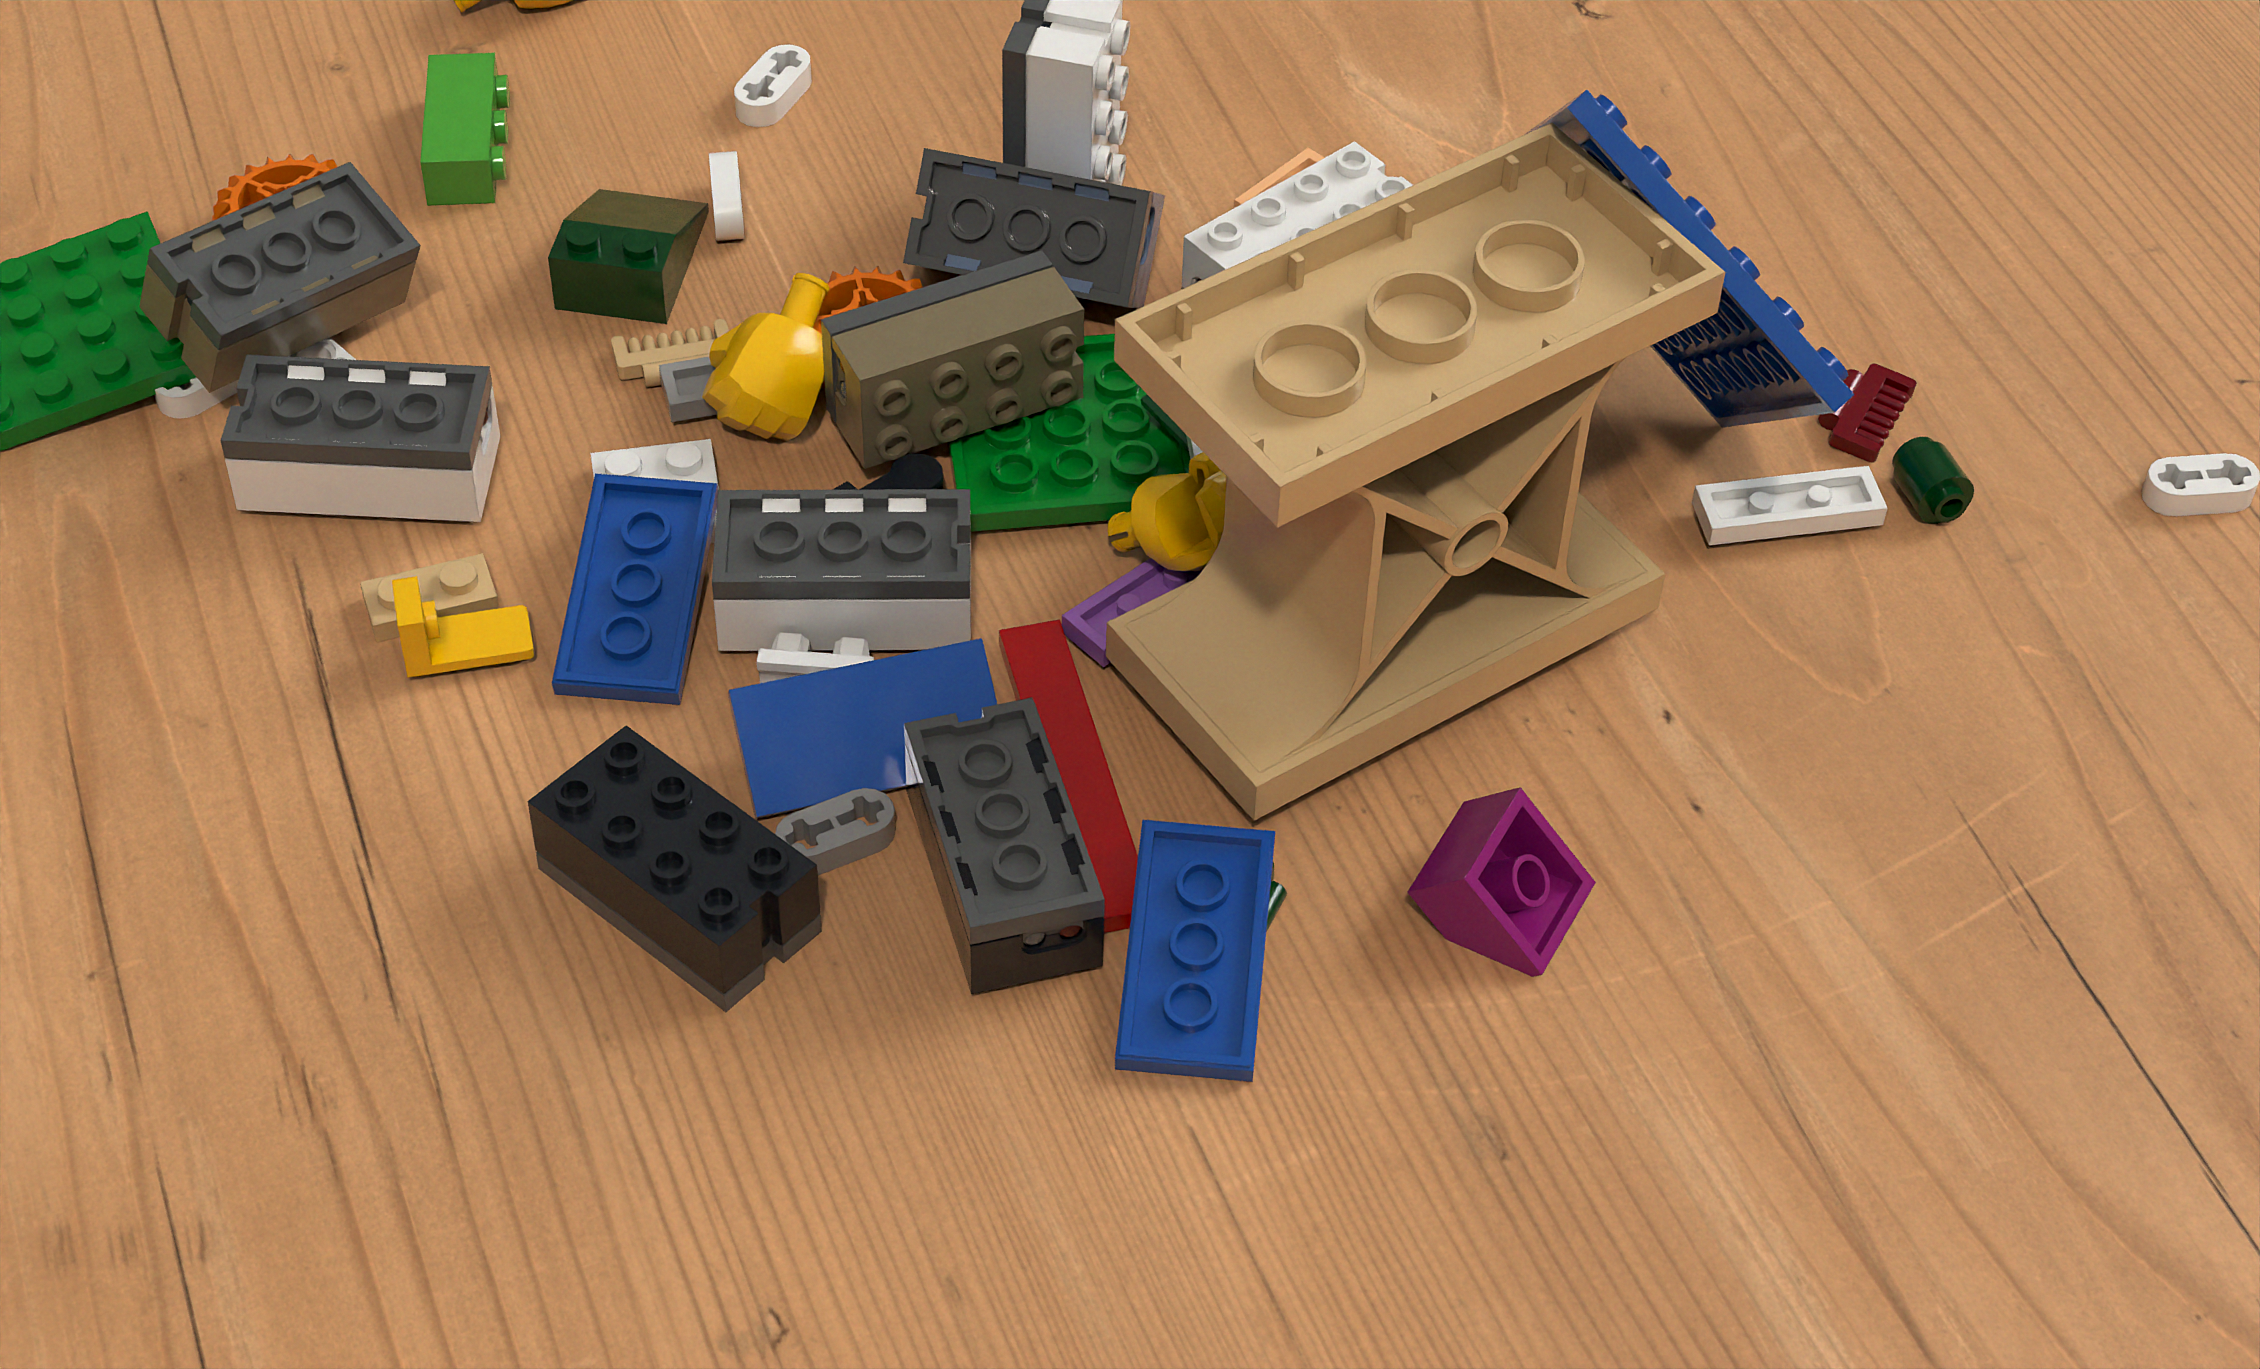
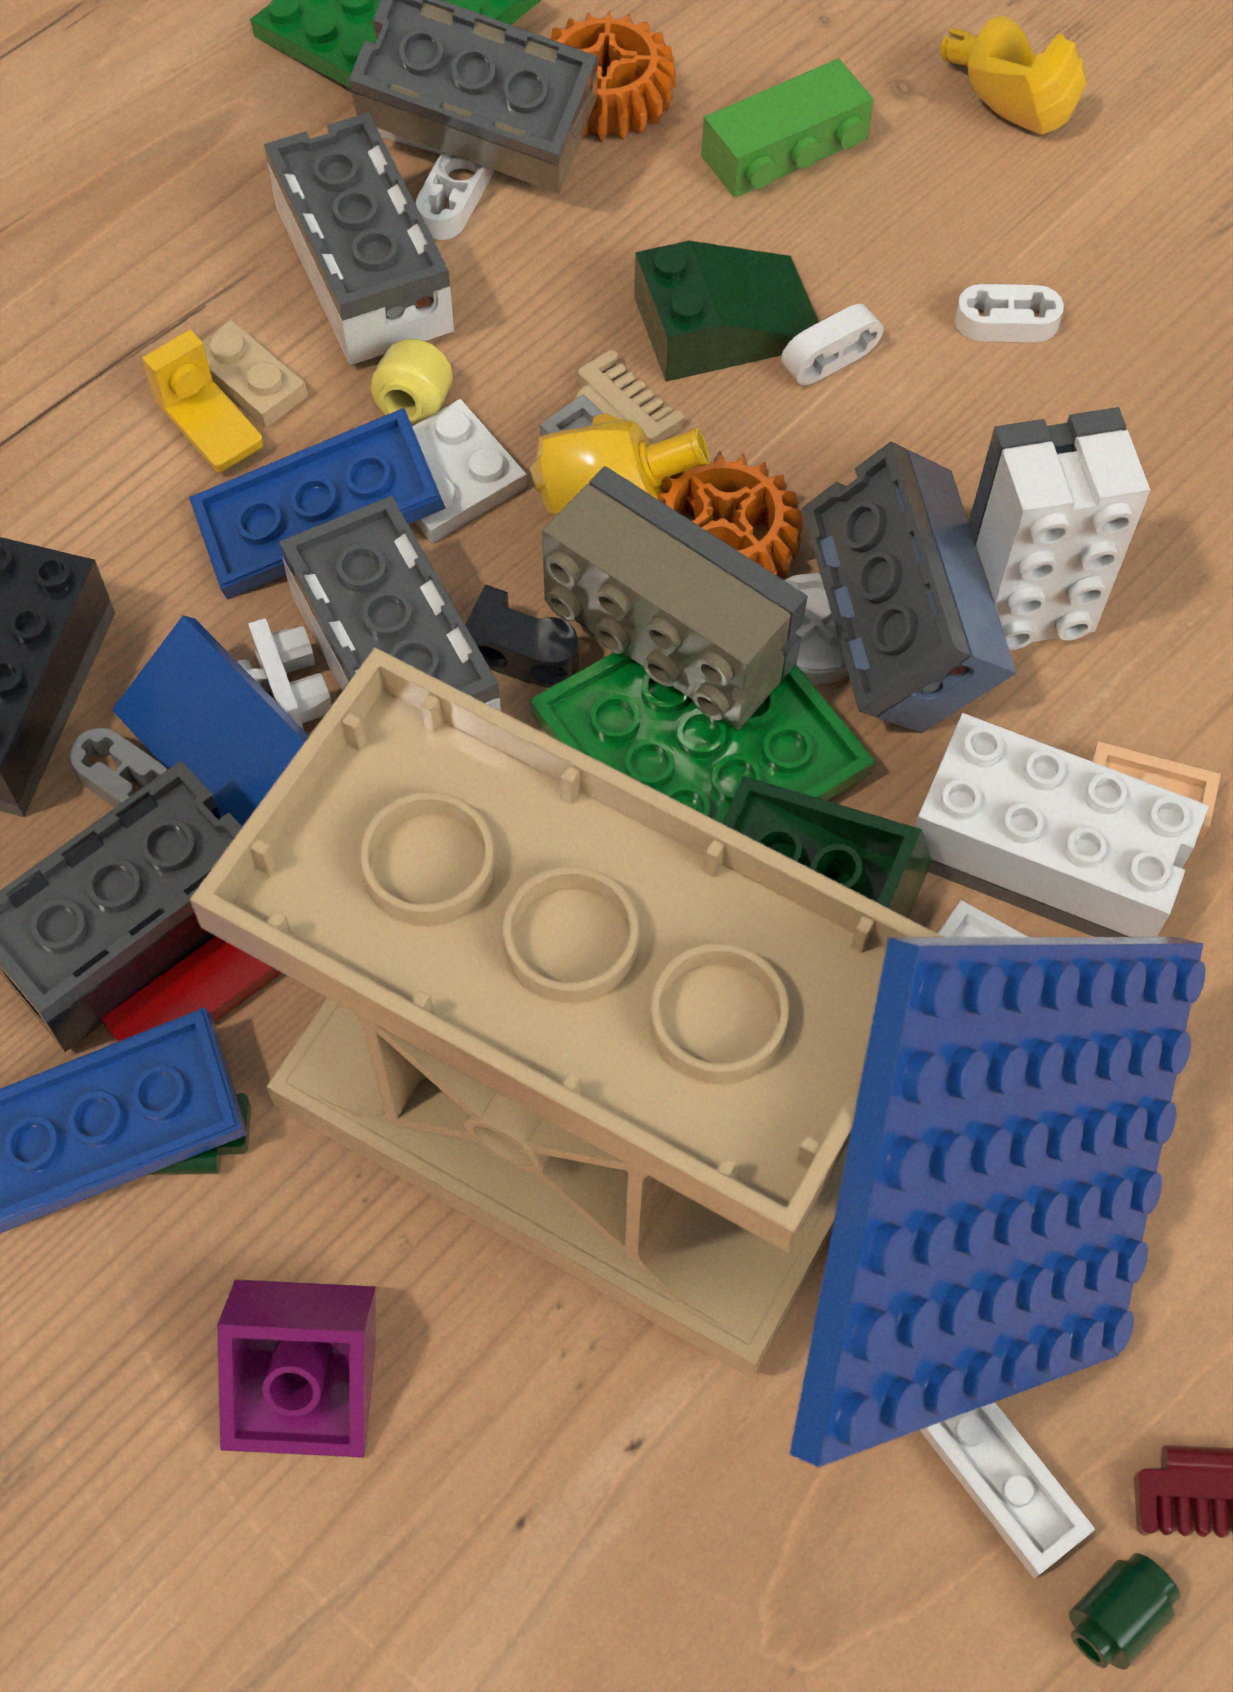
camera: 65 degrees right, 15 degrees up
(549, 474) = (412, 378): none -> light yellow head

